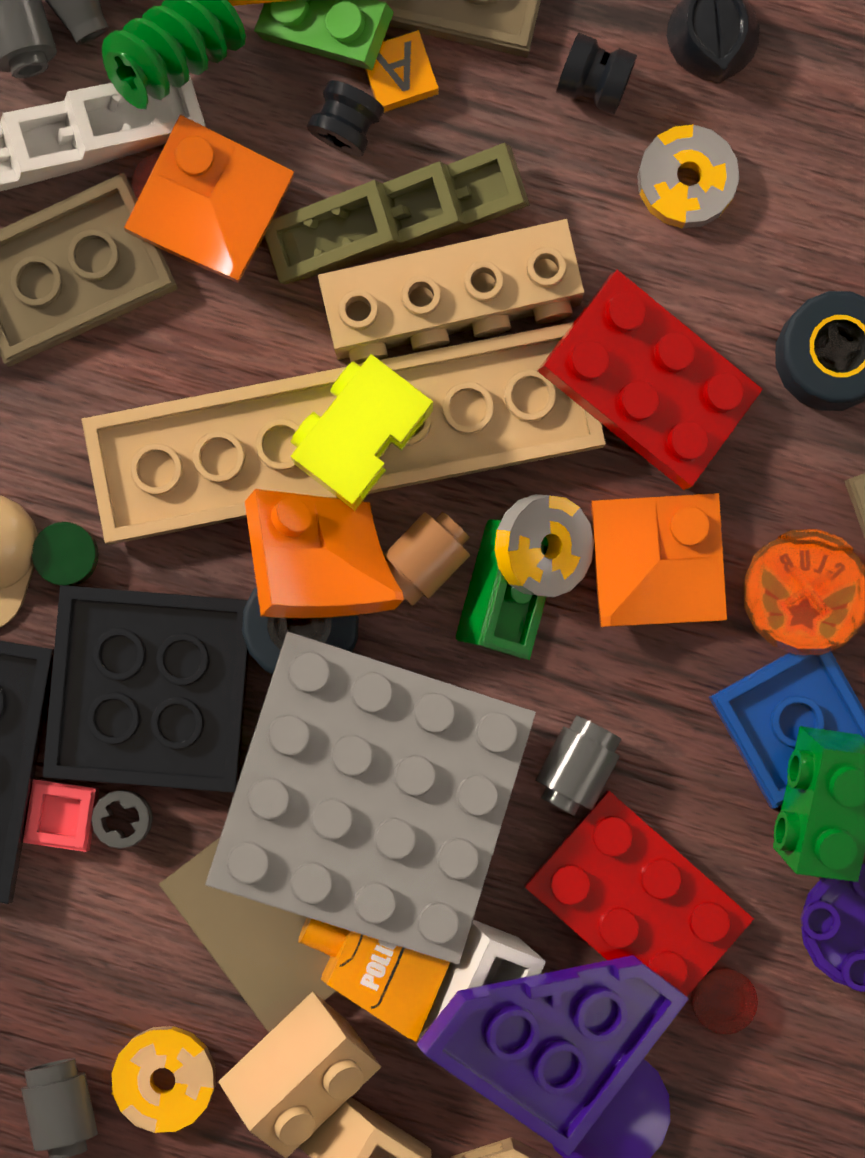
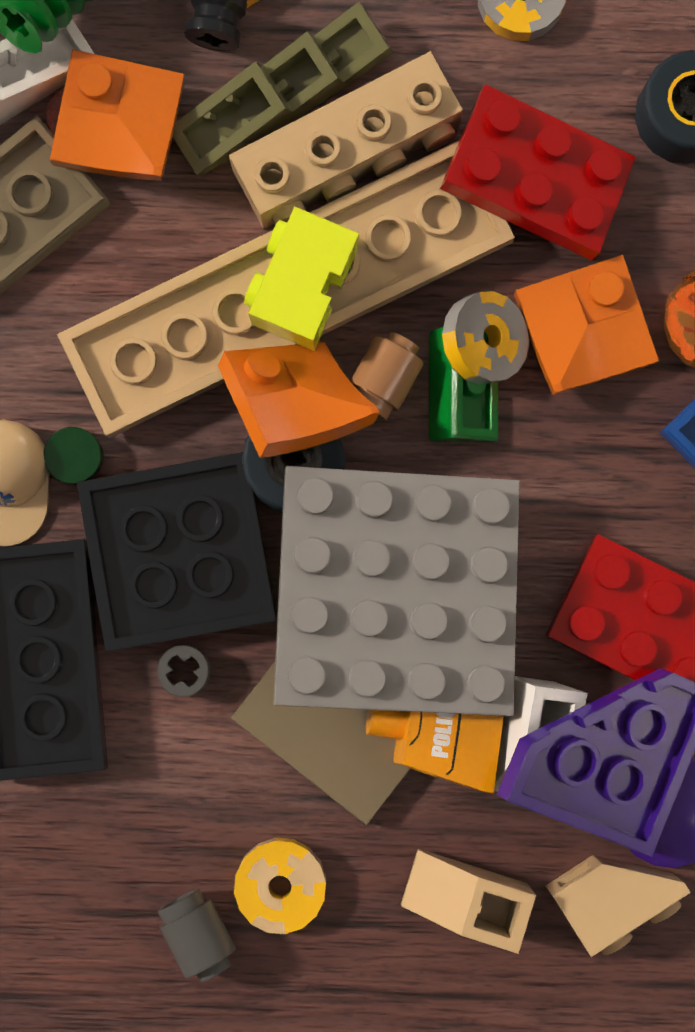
camera: 15 degrees left, 0 degrees up
(60, 815) = (129, 681): coral tile -> none
(299, 1075) = (398, 850): tan brick -> none
(578, 765) = (566, 519): dark grey brick -> none

